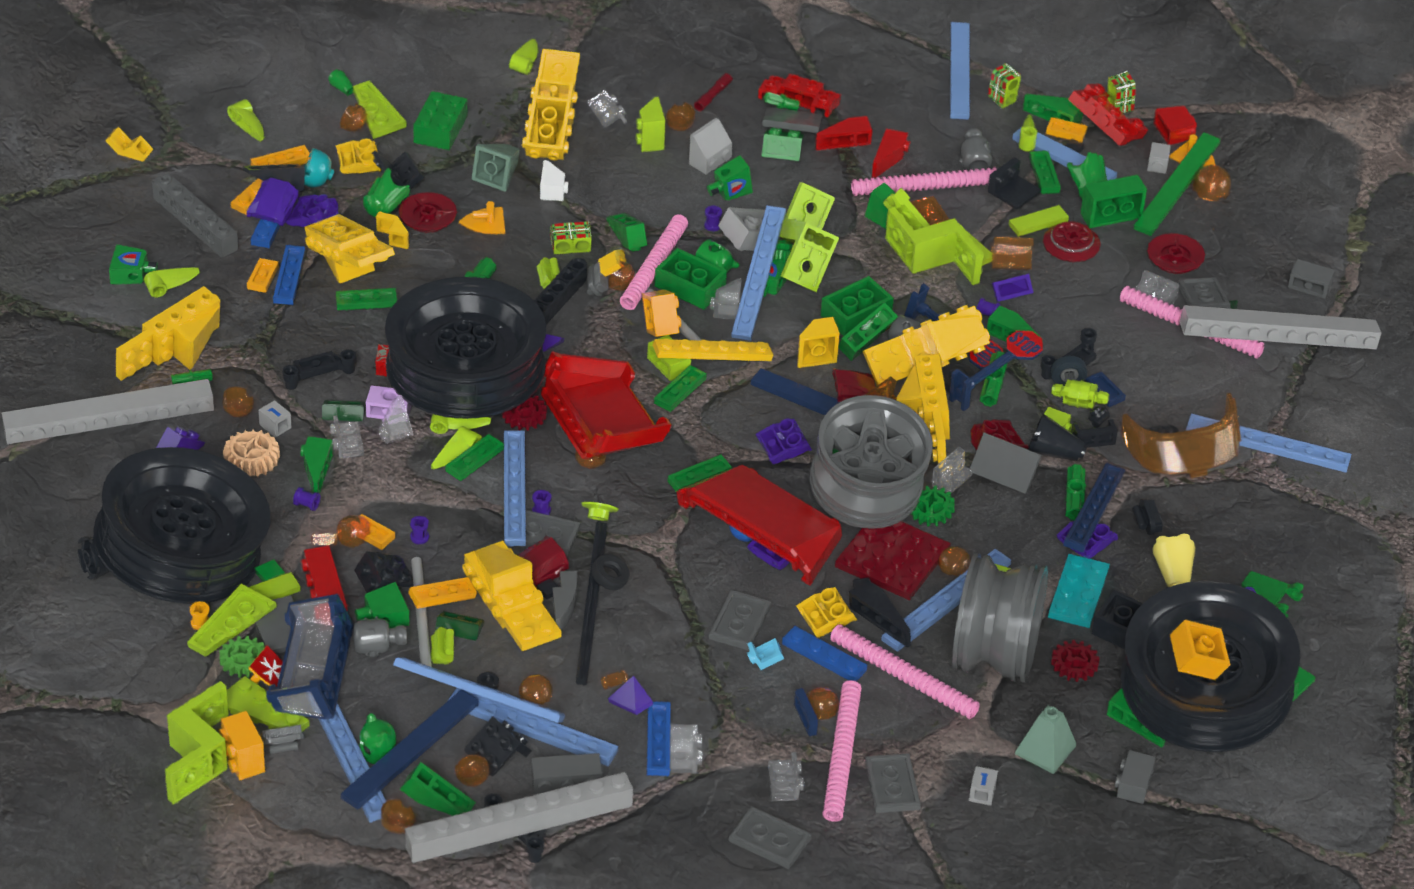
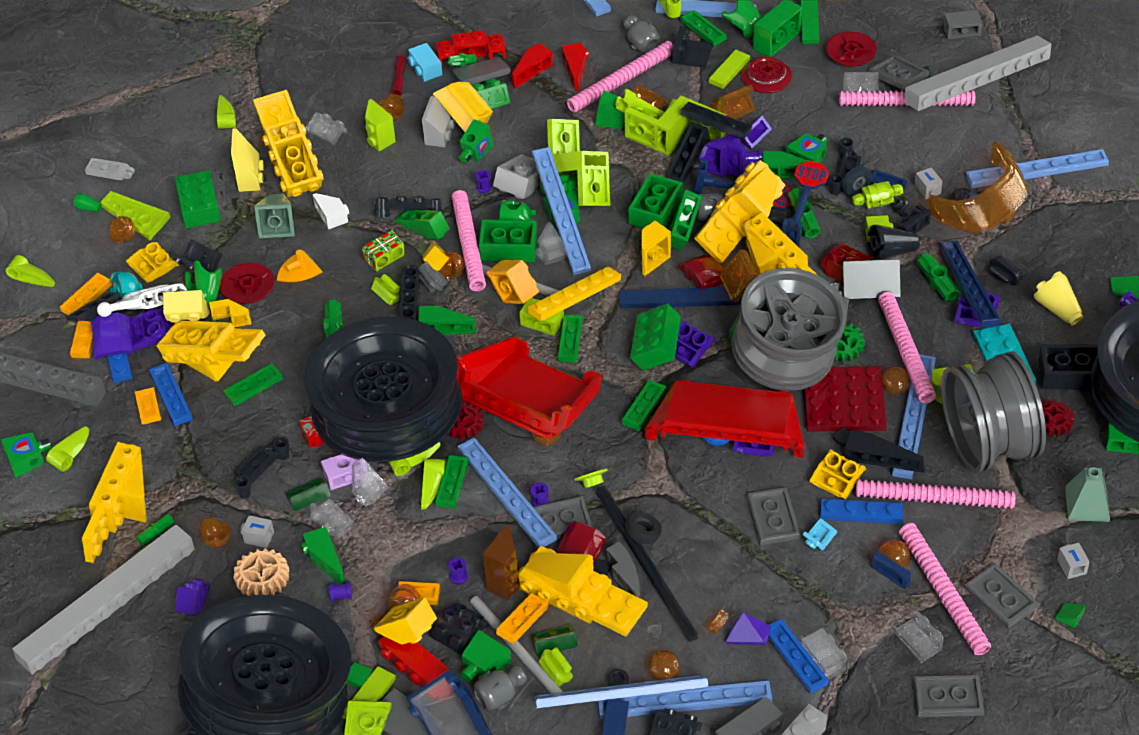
camera: 25 degrees left, 5 degrees up
(307, 179) = (138, 300): none -> white piece
(337, 545) = (407, 621): none -> yellow slope
(350, 202) = (185, 305): none -> light yellow slope
(383, 61) = (109, 169): none -> light grey hinge
(454, 537) = (501, 565): none -> reddish brown slope
(503, 105) = (246, 163): none -> light yellow slope
(574, 320) = (446, 320): none -> green slope
(622, 203) = (401, 202): none -> black plate
(745, 89) = (425, 62): none -> medium azure brick
(746, 138) = (463, 104): none -> yellow helmet
(754, 419) = (655, 337): none -> green brick
(935, 274) = (688, 152): none -> black slope
(943, 829) = (1071, 614): none -> green slope
(958, 290) = (725, 156): none -> dark purple piece
(967, 254) = (716, 120): none -> black plate
(990, 526) = (906, 347): none -> bright pink piece
(1050, 325) = (809, 147): none -> green torso
(1142, 406) = (928, 183): none -> light grey brick

